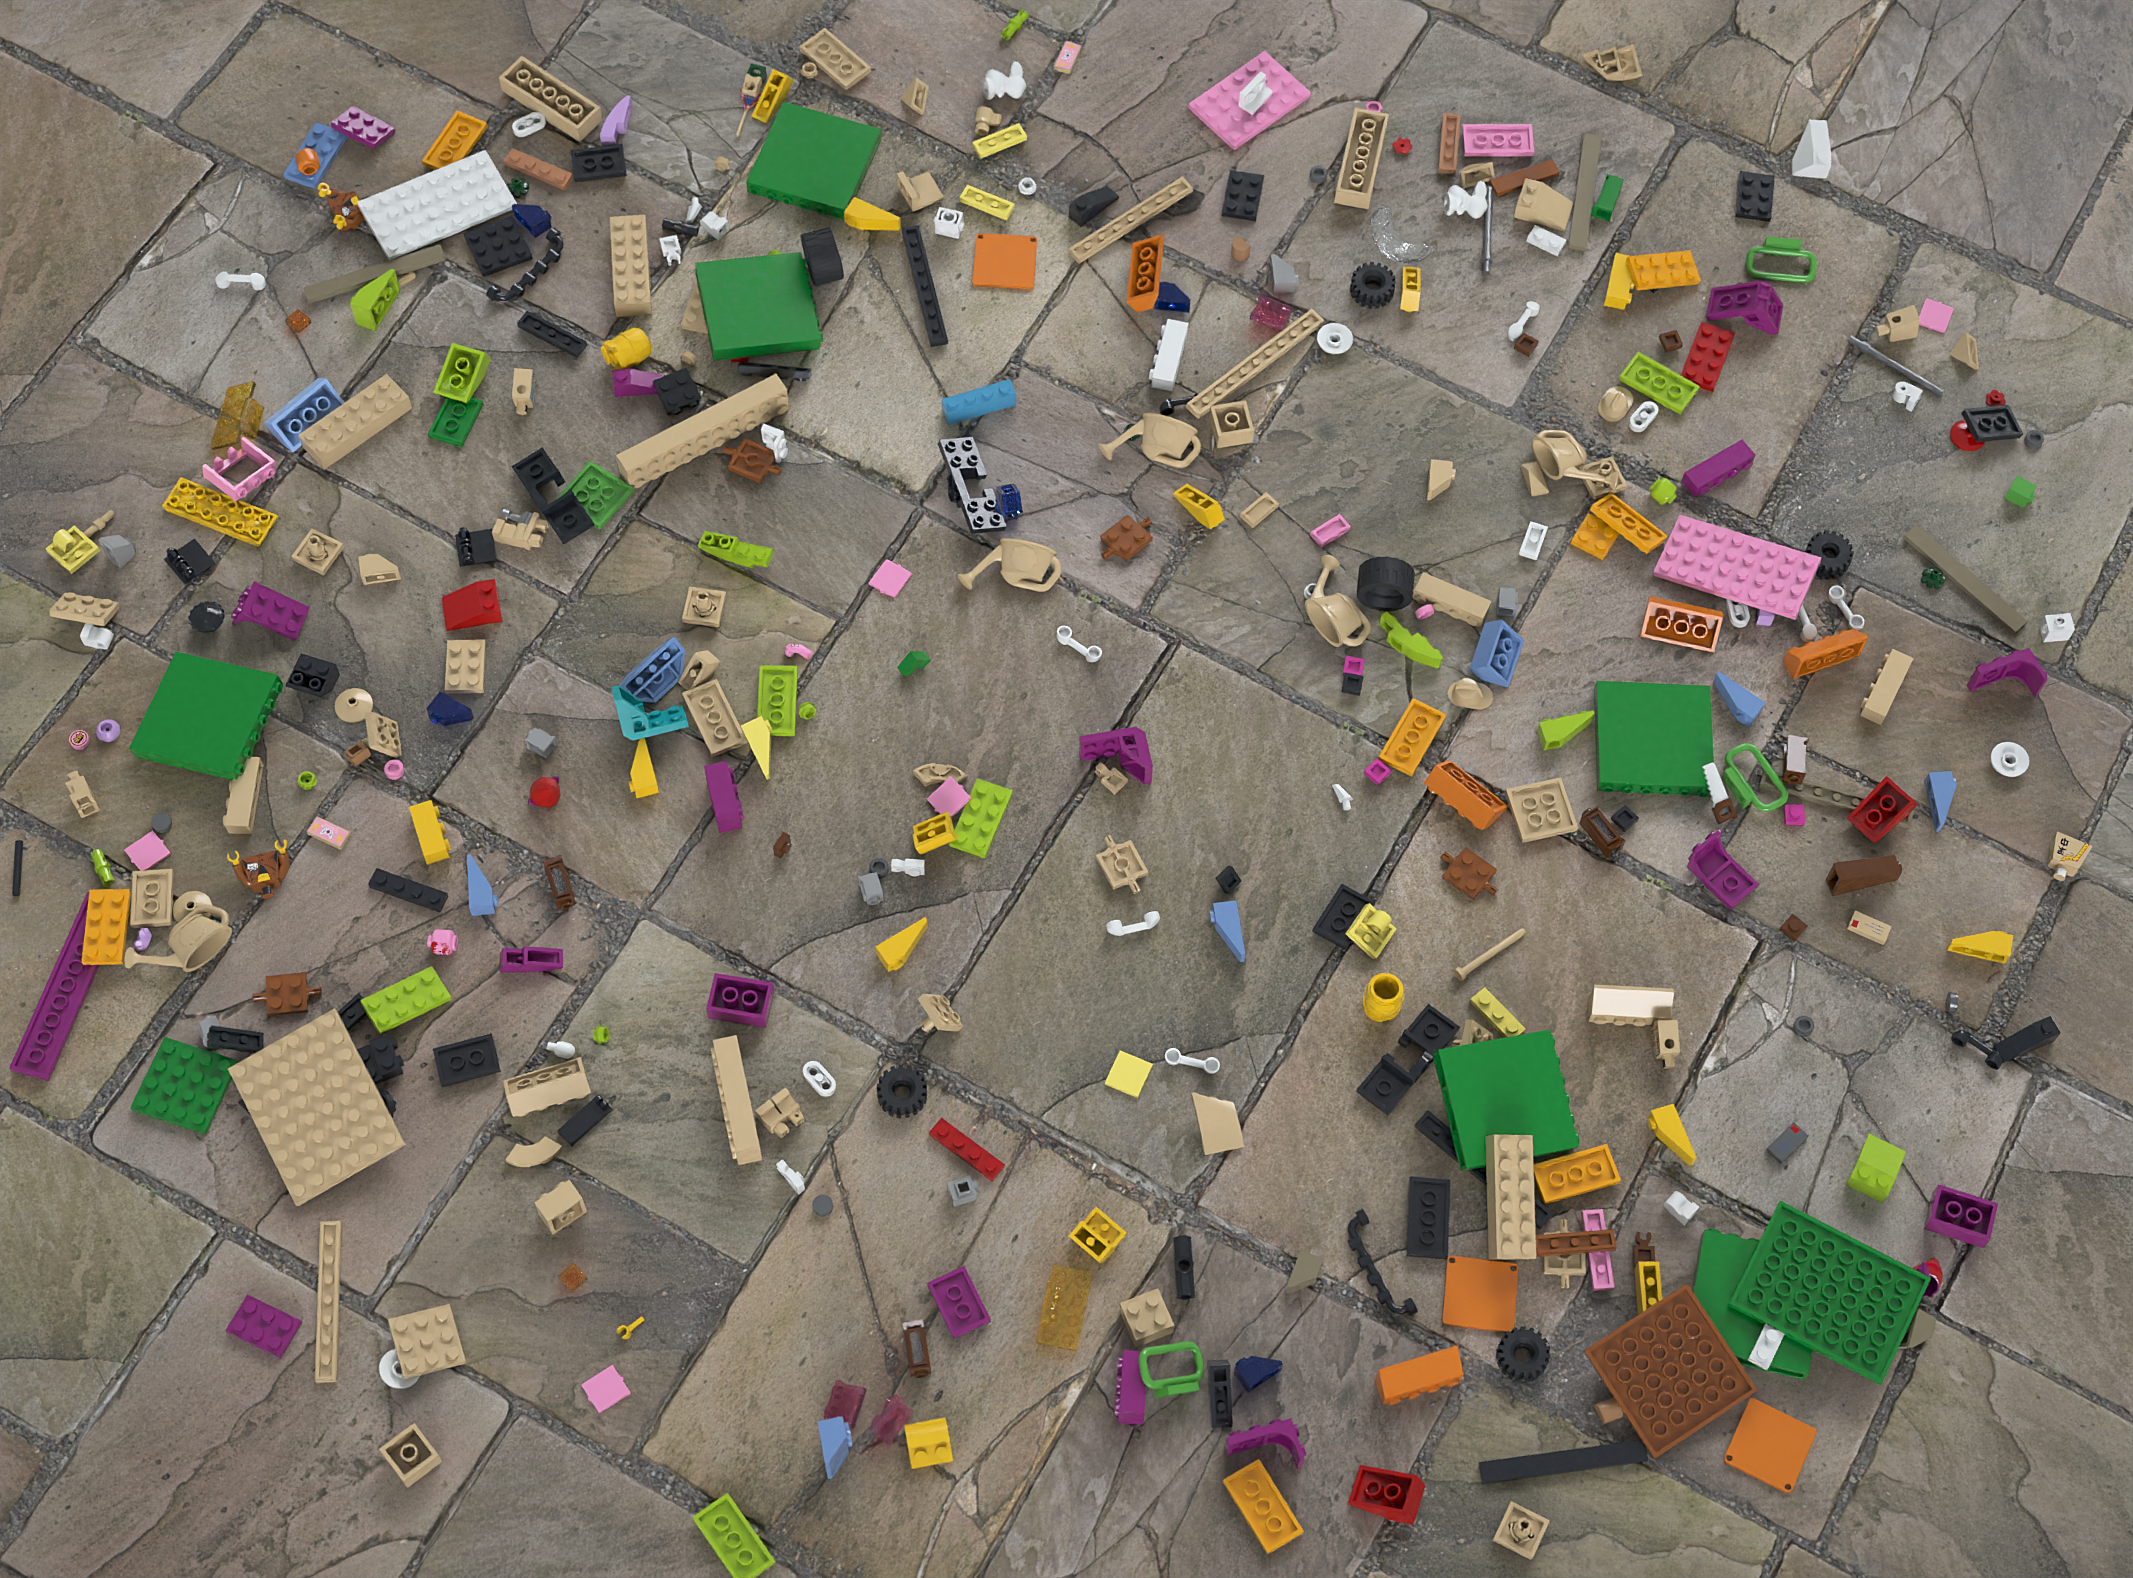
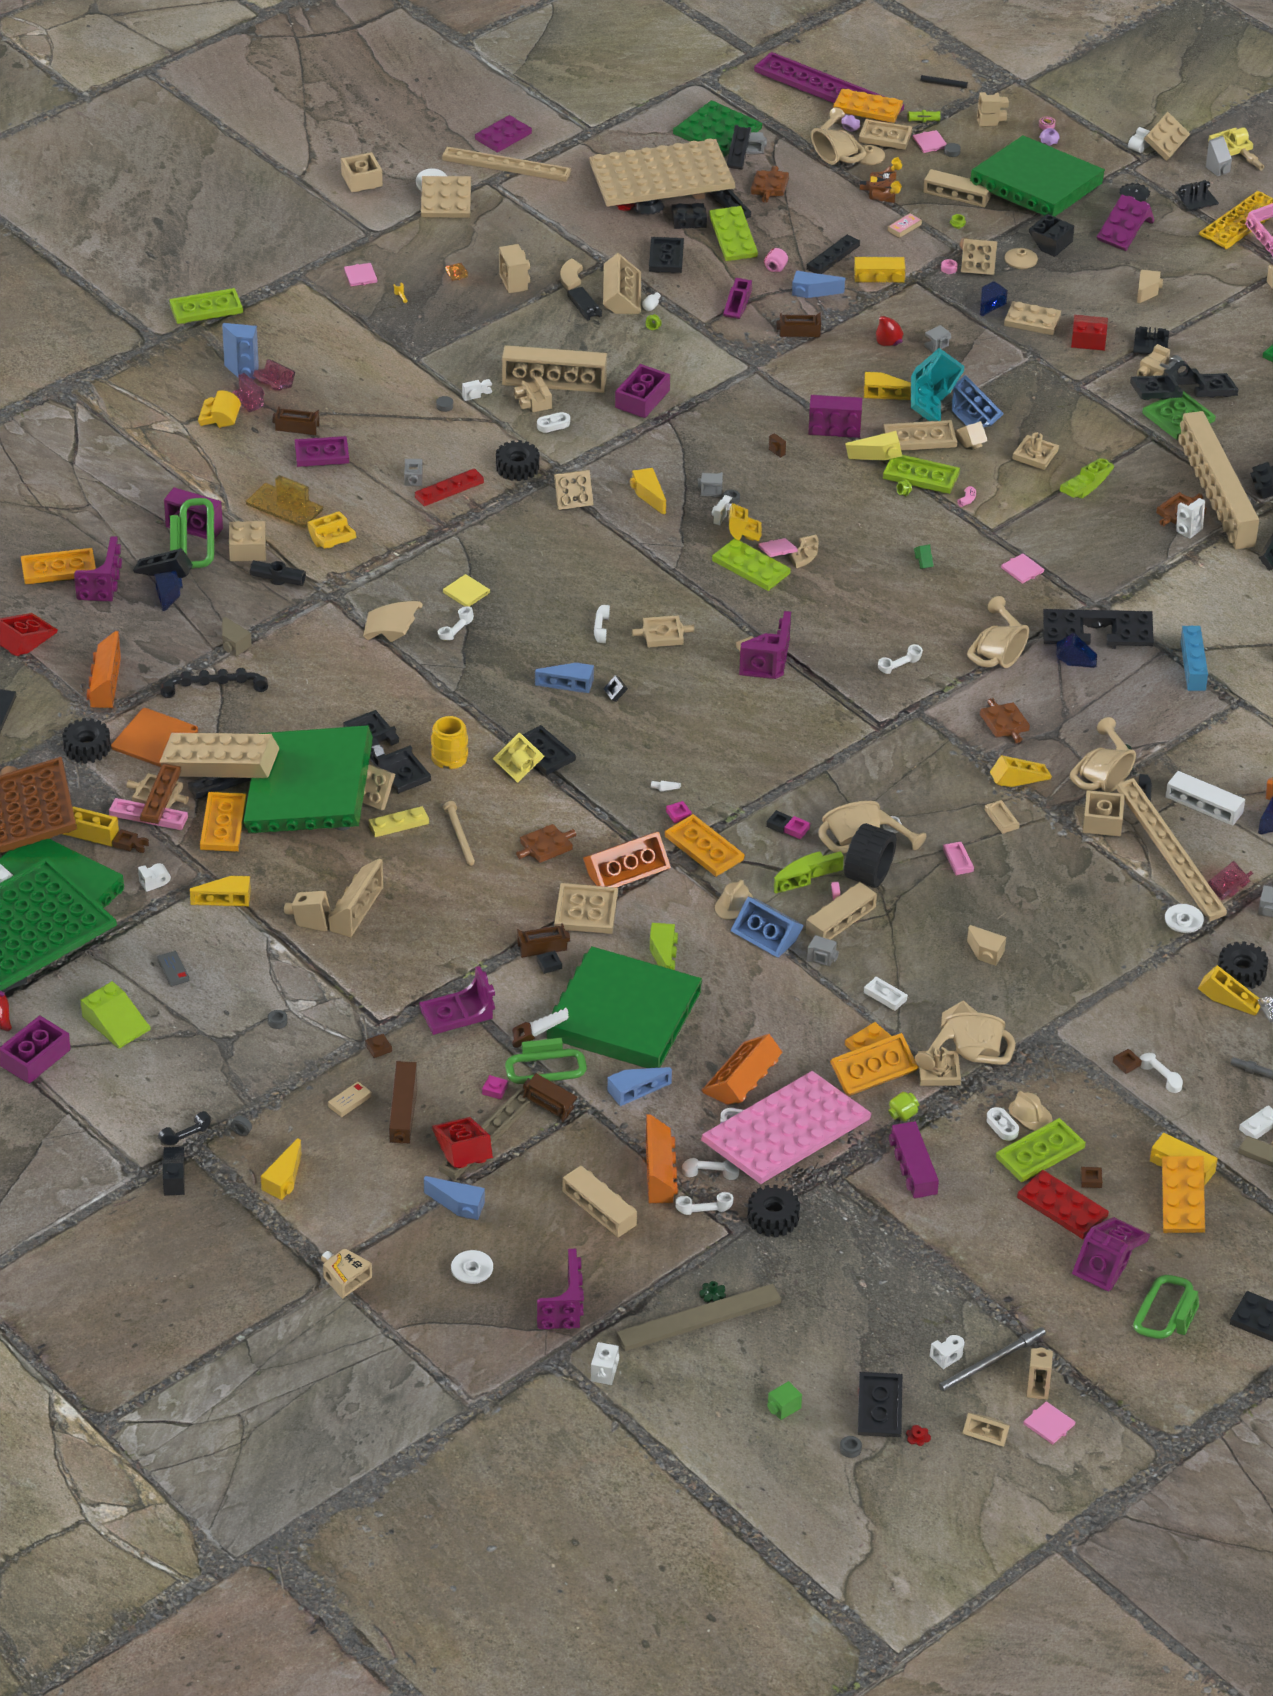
camera: 110 degrees right, 20 degrees down
(313, 549) = (1179, 259): tan plate -> none
(1428, 1218) = (231, 718): black plate -> none

